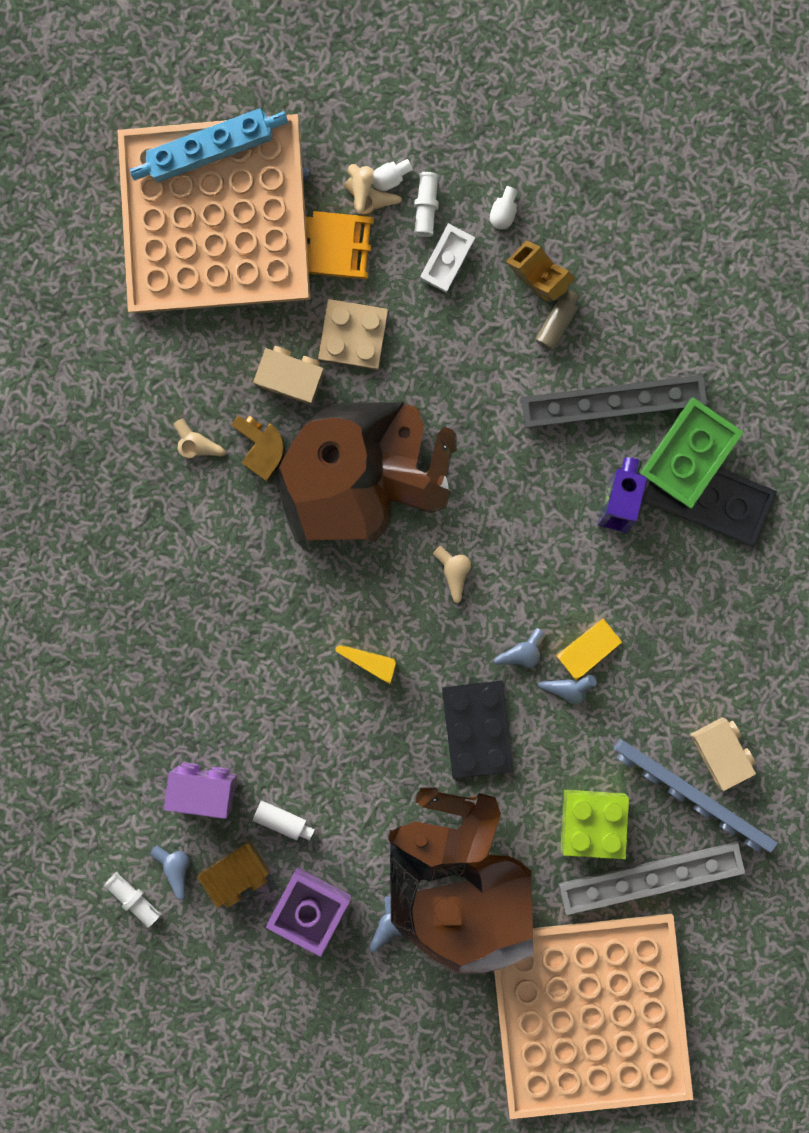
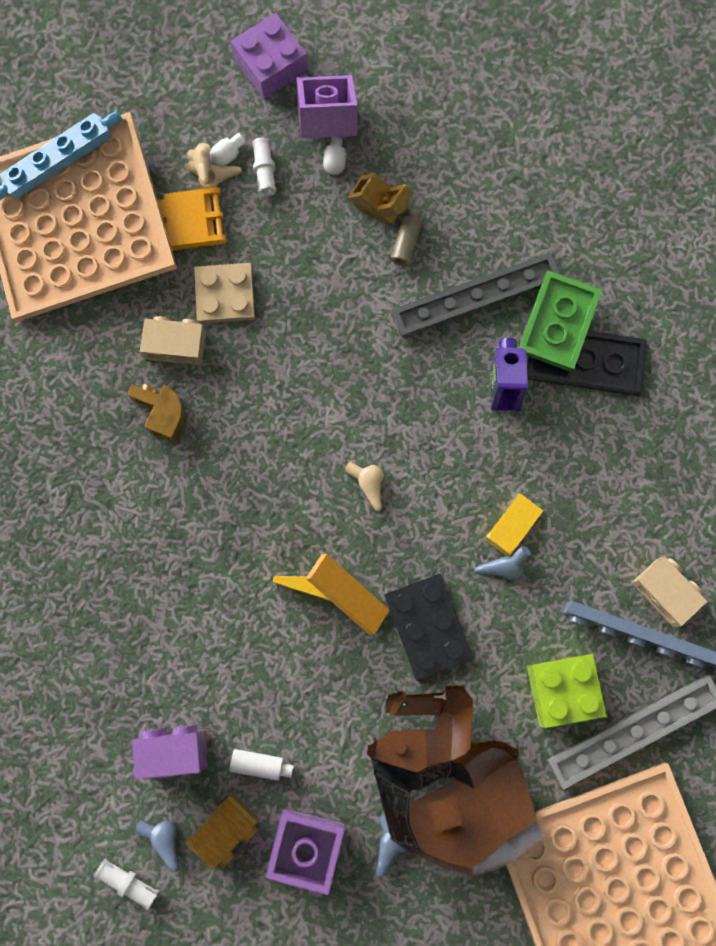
camera: 10 degrees left, 10 degrees down
(195, 444) = (98, 424): tan animal -> none
(353, 464) = (250, 405): reddish brown piece -> none
(405, 680) = (347, 594): none -> light orange tile
(447, 258) = (294, 207): white plate -> none
(461, 78) = (269, 55): none -> medium lavender brick
(508, 157) = (327, 107): none -> medium lavender brick
(524, 653) = (454, 543): sand blue animal -> none

